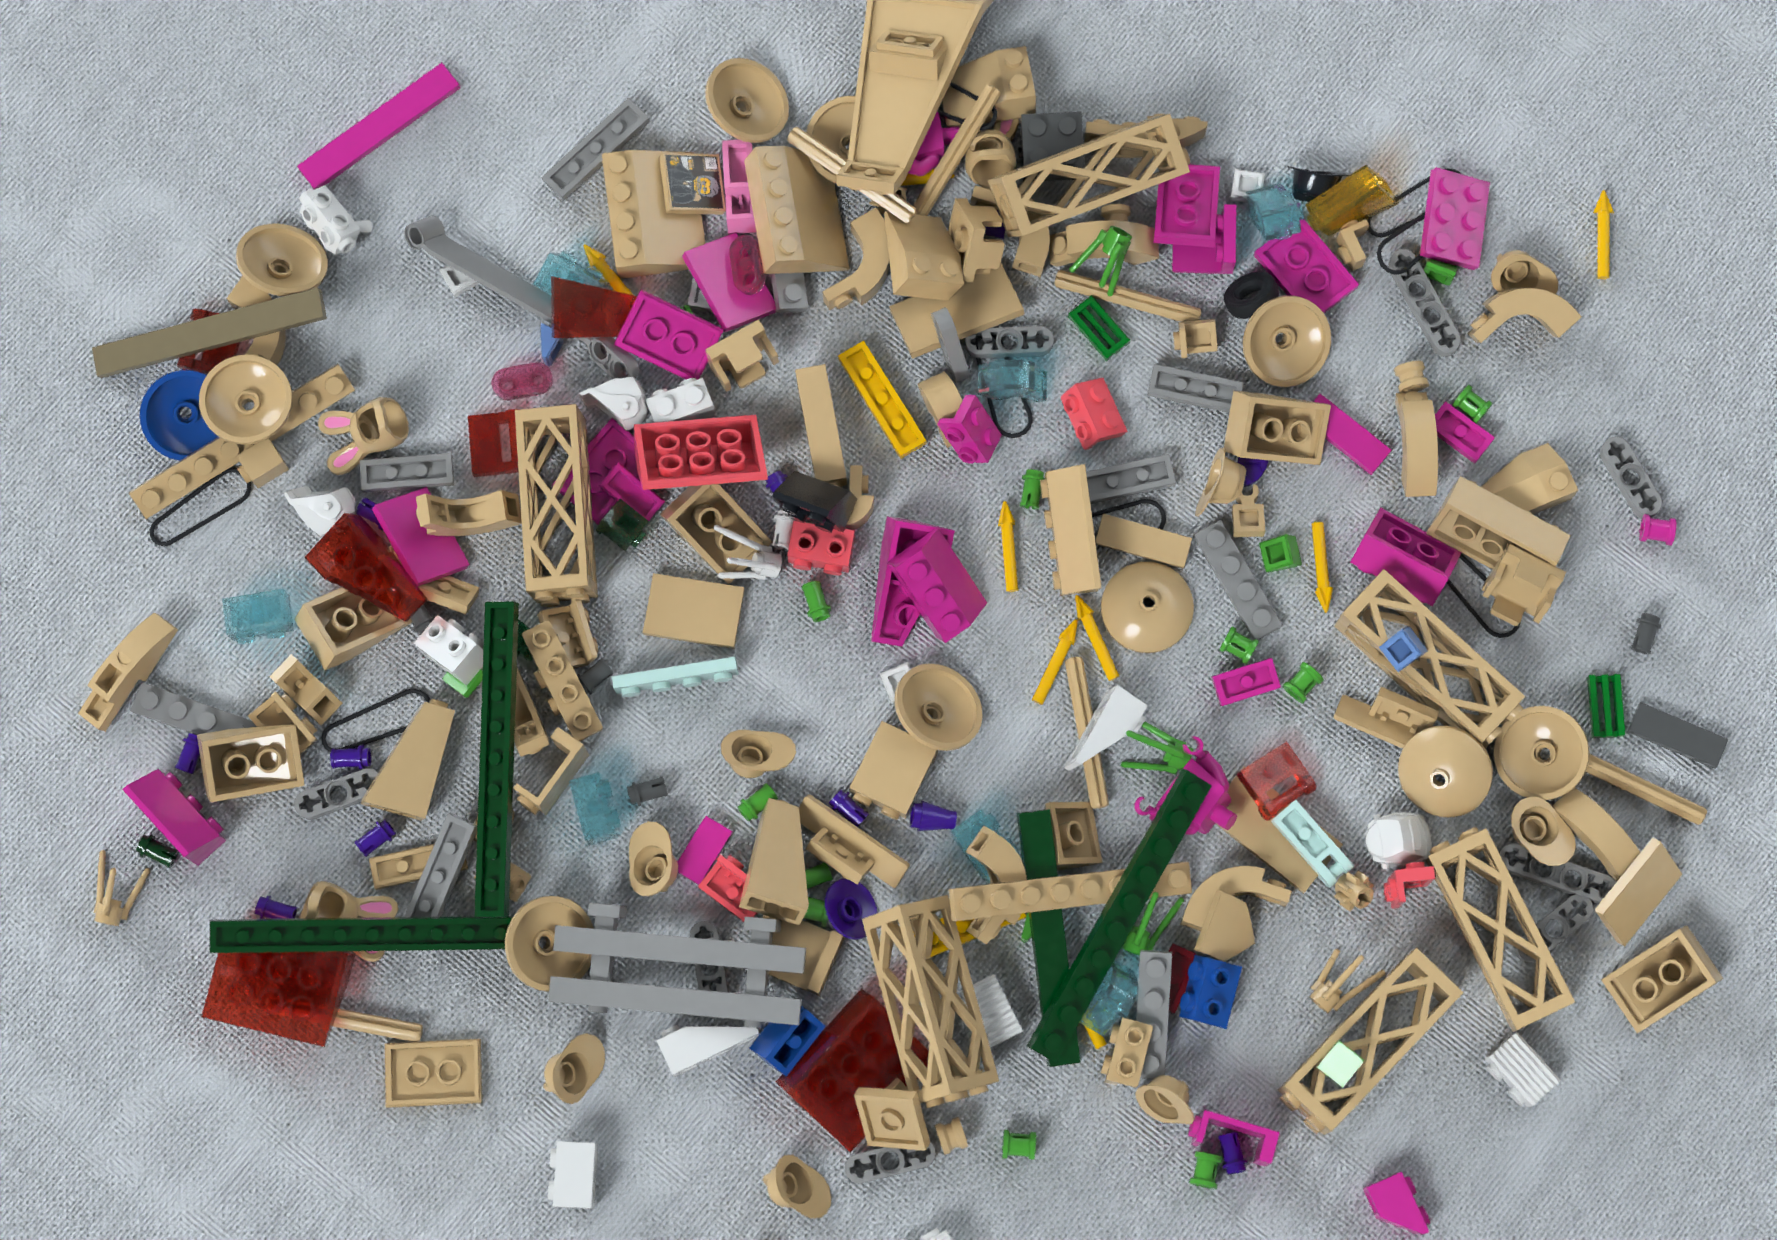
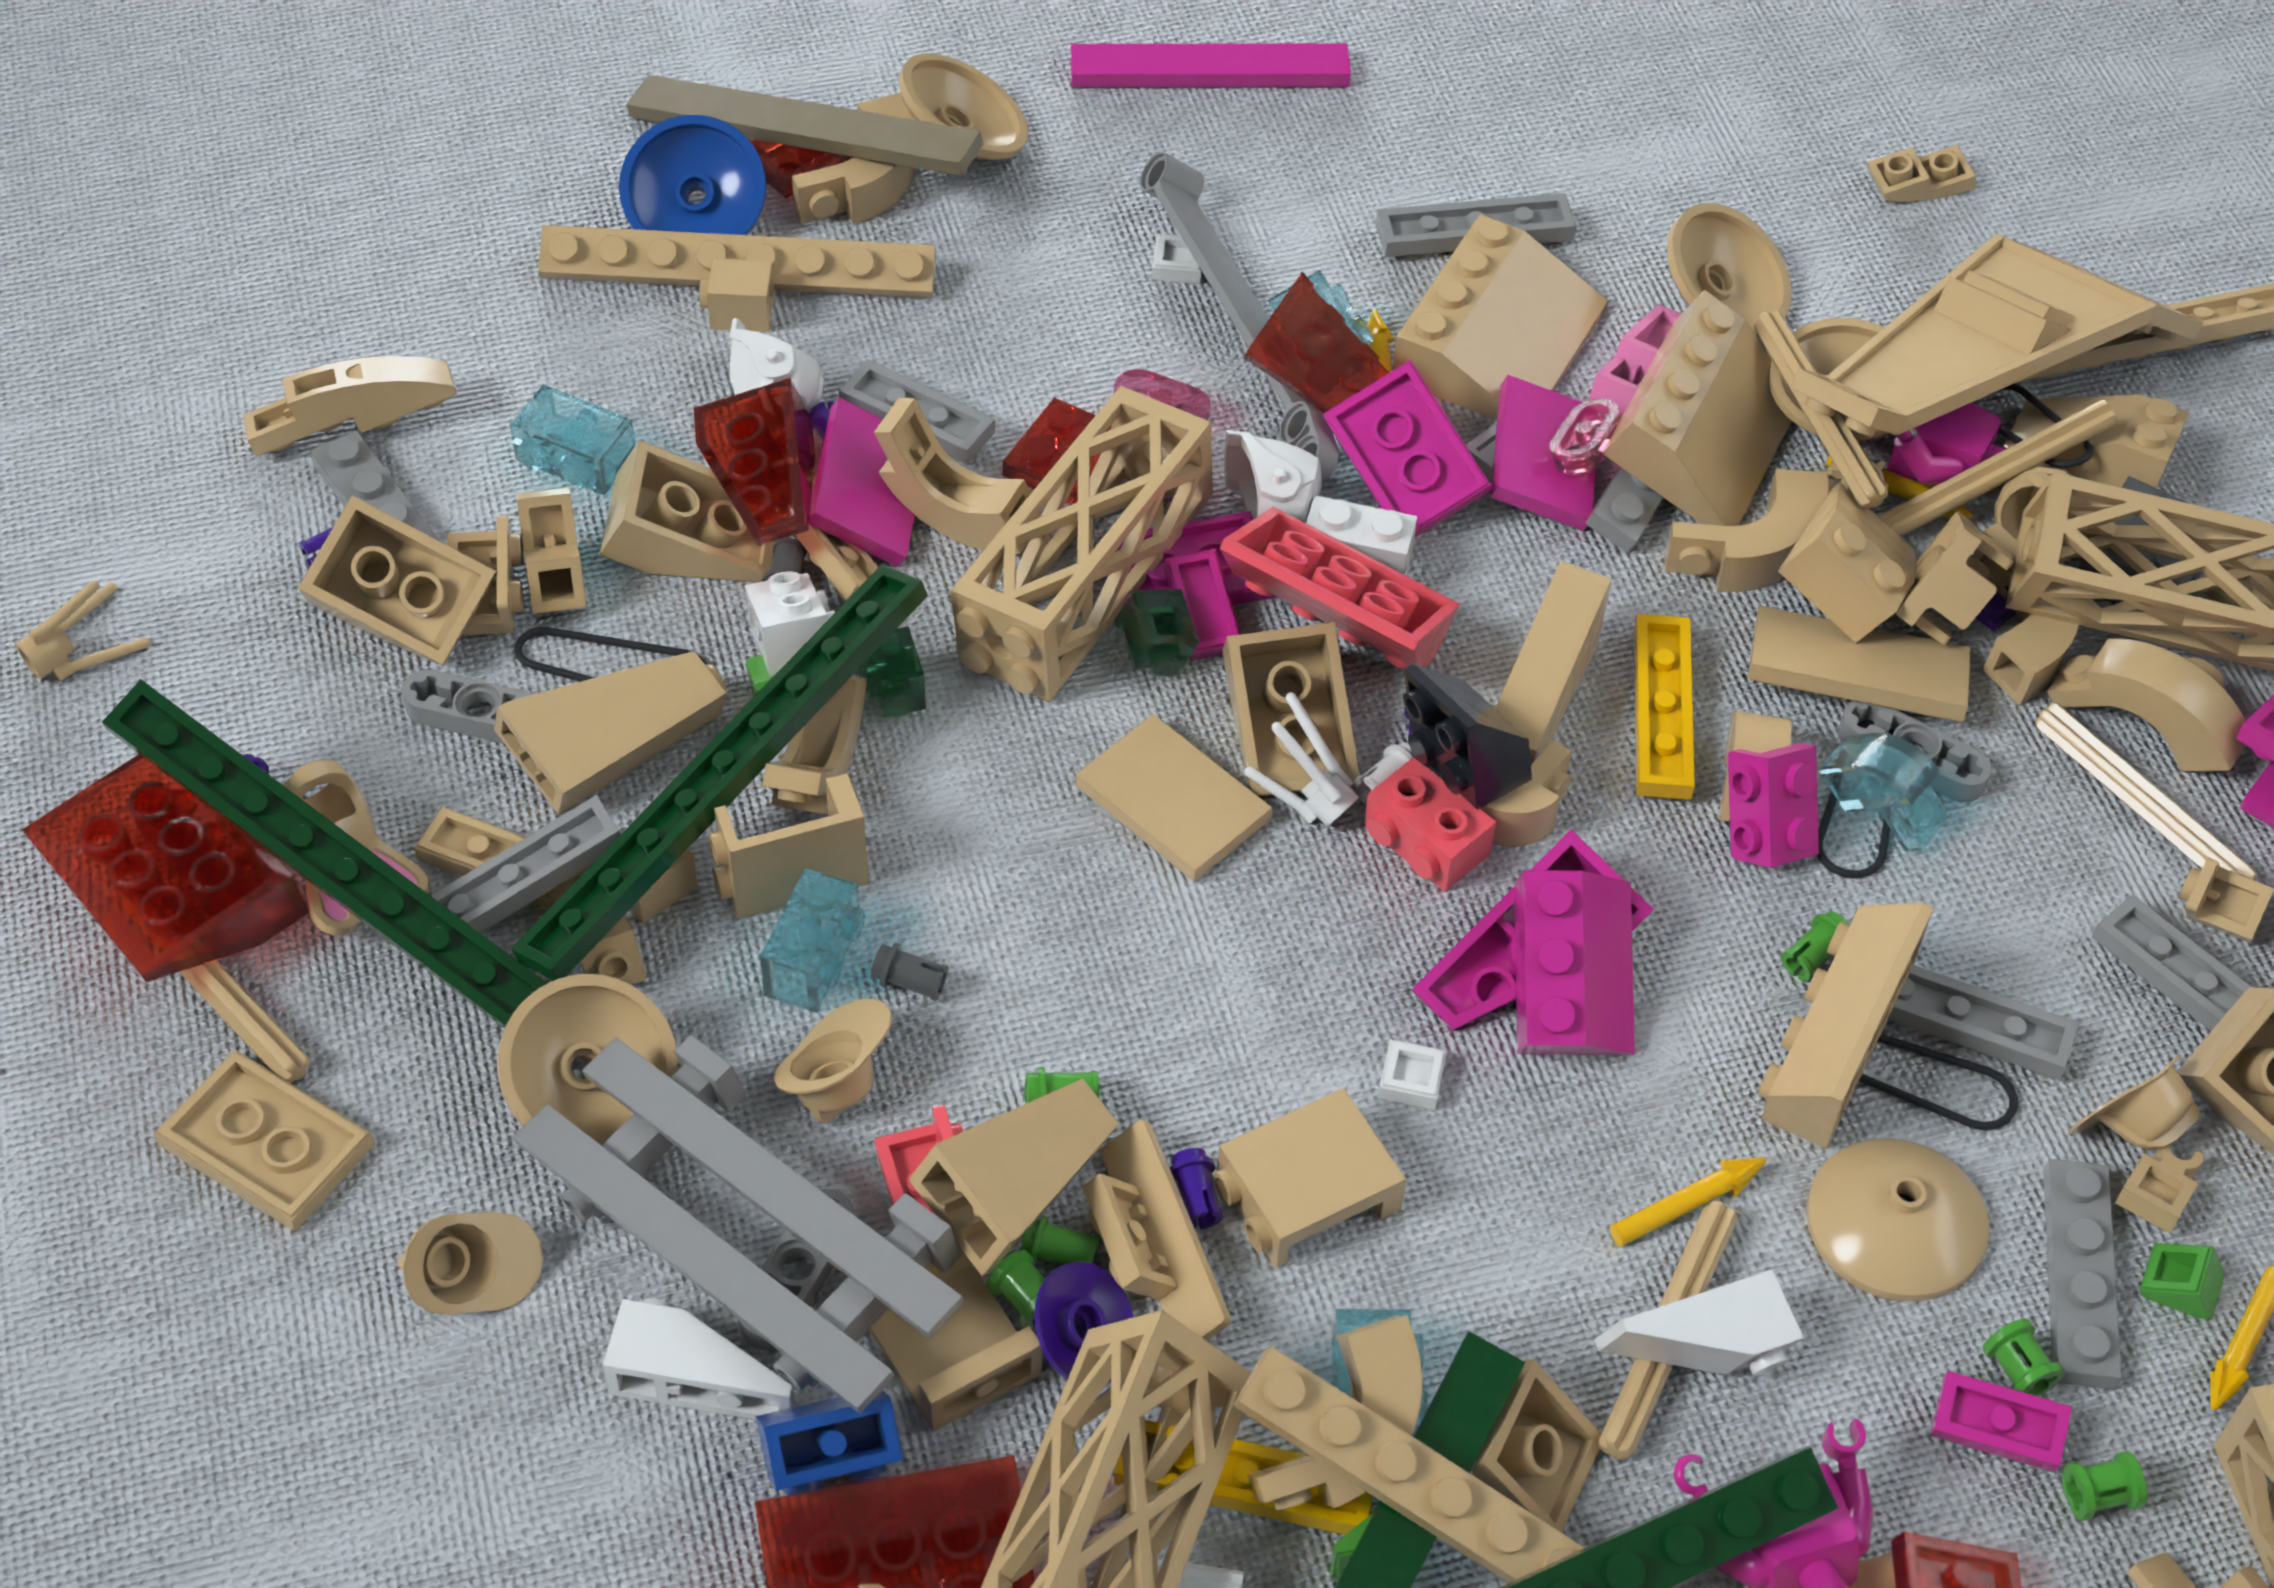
camera: 30 degrees right, 25 degrees down
(156, 850) = (175, 613): dark green pin -> none
(176, 815) = (240, 588): dark pink slope -> none
(189, 497) = (613, 322): black piece -> none
(237, 383) = (780, 197): tan dish -> none
(331, 221) = (1064, 109): white brick -> none
(351, 757) = (532, 671): dark purple pin -> none
(373, 427) = (915, 332): tan piece -> none
(375, 837) = (477, 787): dark purple pin -> none
(549, 345) = (1234, 383): medium blue slope -> none
(562, 681) = (905, 747): tan bracket -> none
(573, 631) = (964, 713): tan bracket -> none
(574, 1175) = (326, 1413): white brick -> none
(595, 676) = (956, 785): dark grey pin -> none
(688, 675) = (1078, 851): light aqua plate -> none
(692, 183) = (1578, 320): tile -> none
(703, 850) = (910, 1101): dark pink tile -> none
(741, 356) = (1493, 524): tan panel -> none
(756, 752) = (1109, 1017): tan piece -> none
(816, 601) = (1362, 899): bright green pin -> none
(931, 817) = (1317, 1281): dark purple cone -> none
(945, 697) = (1448, 1127): tan dish -> none
(950, 345) = (1822, 675): light grey beam -> none
(1006, 522) = (1740, 971): yellow piece -> none
(1085, 614) = (1784, 1168): yellow piece -> none
(1093, 412) = (1987, 904): coral bracket -> none
(1103, 351) = (2076, 846): green tile -> none
(1116, 245) = (2176, 676): bright green plant -> none
(1143, 541) = (1955, 1119): tan tile -> none
(1173, 753) = (1801, 1433): bright green plant -> none
(1254, 469) = (2210, 1134): dark purple tile -> none

